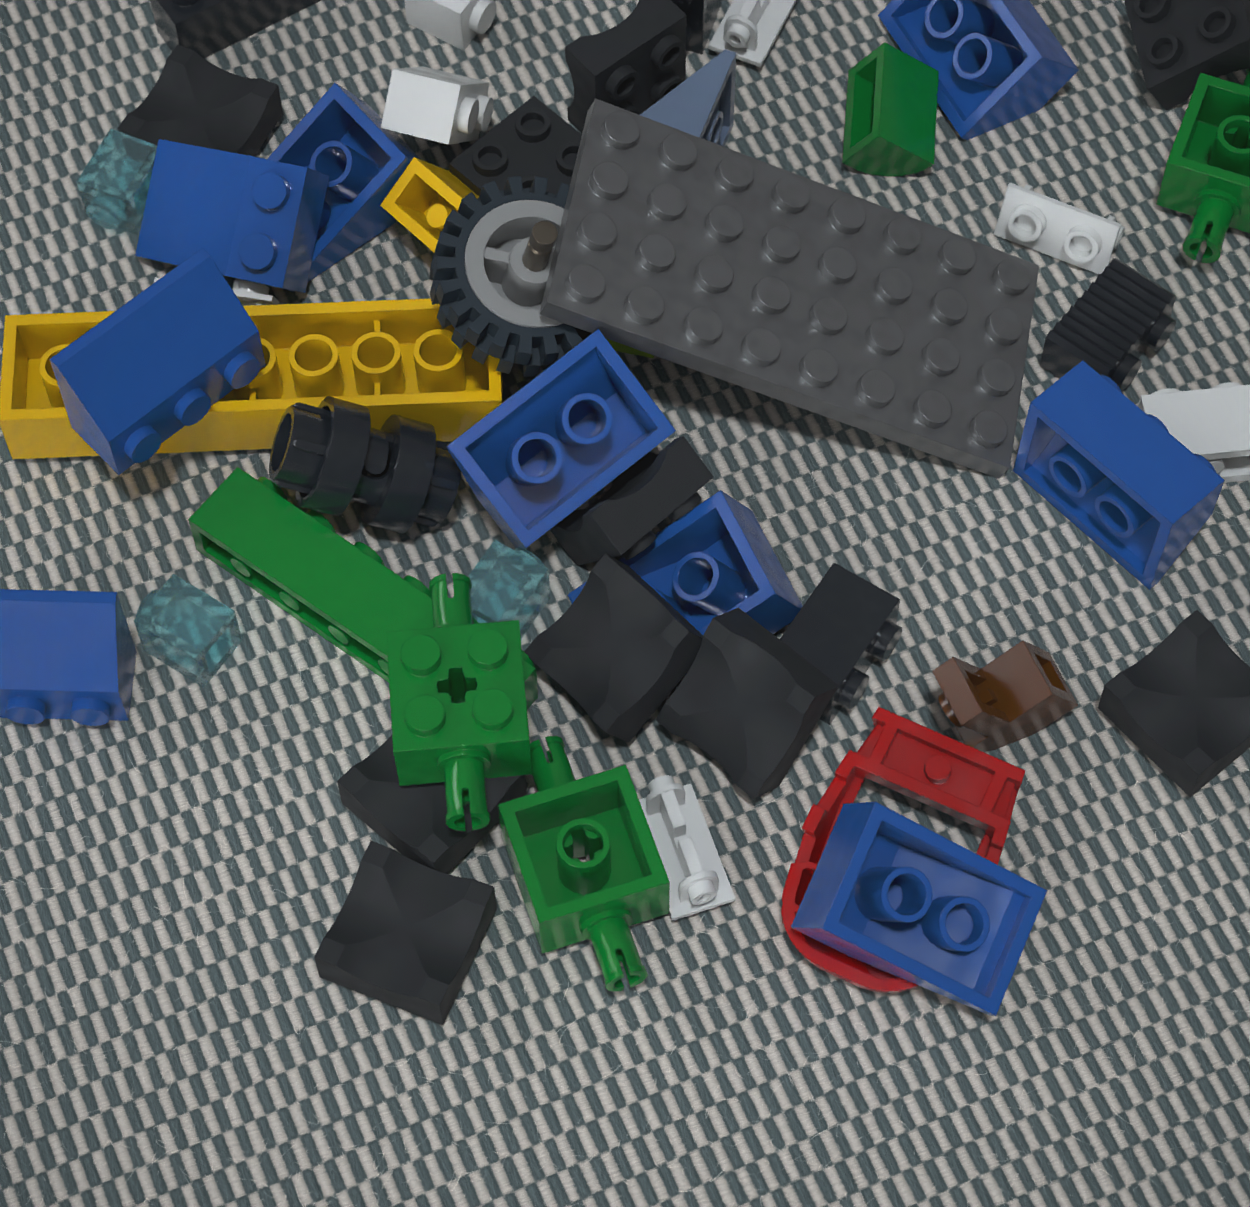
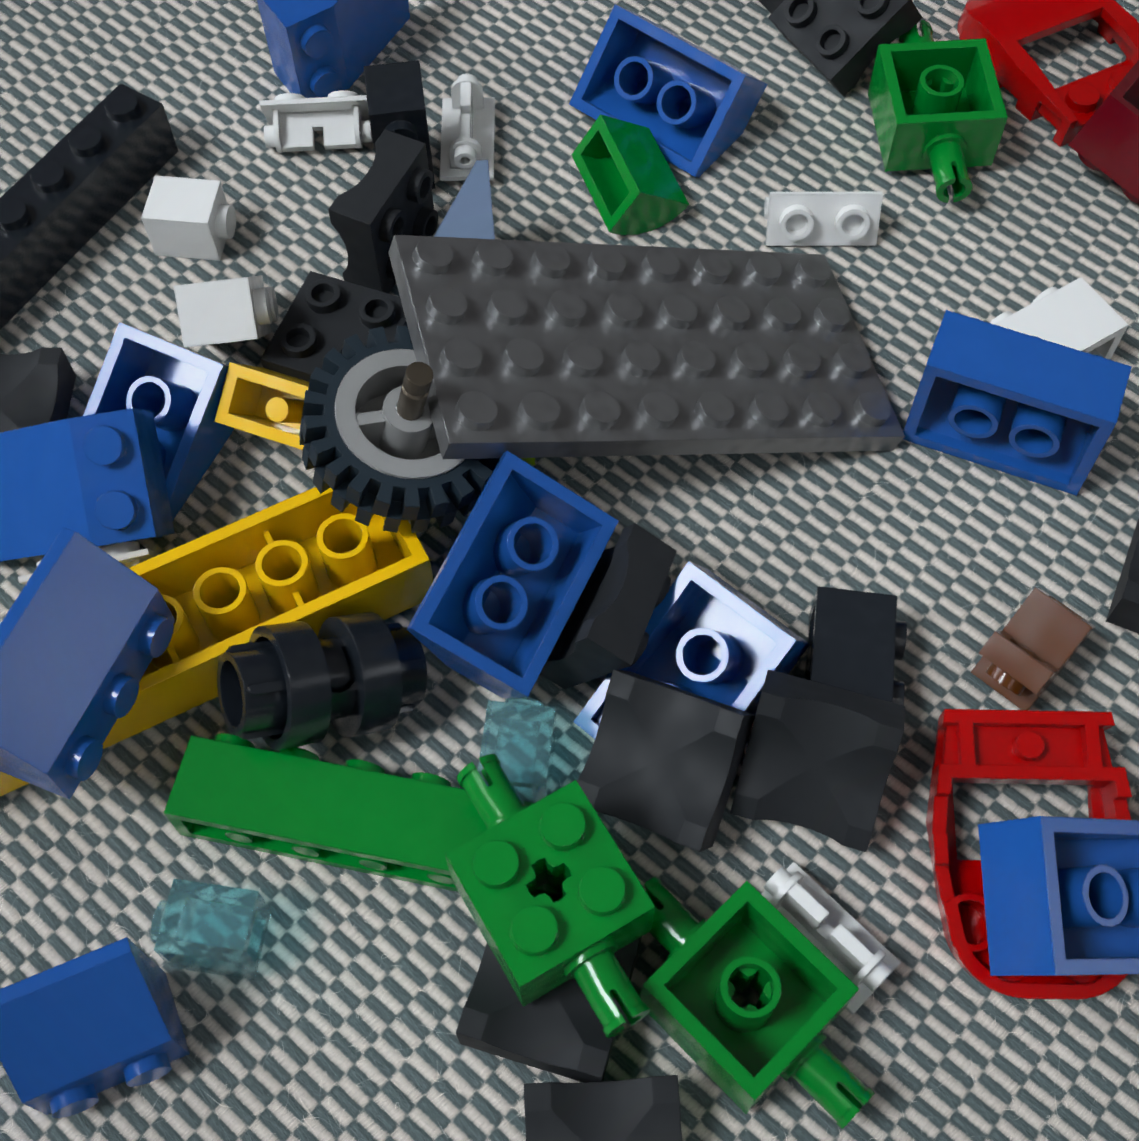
camera: 25 degrees left, 0 degrees up
(1111, 325) = (918, 284): black brick -> none

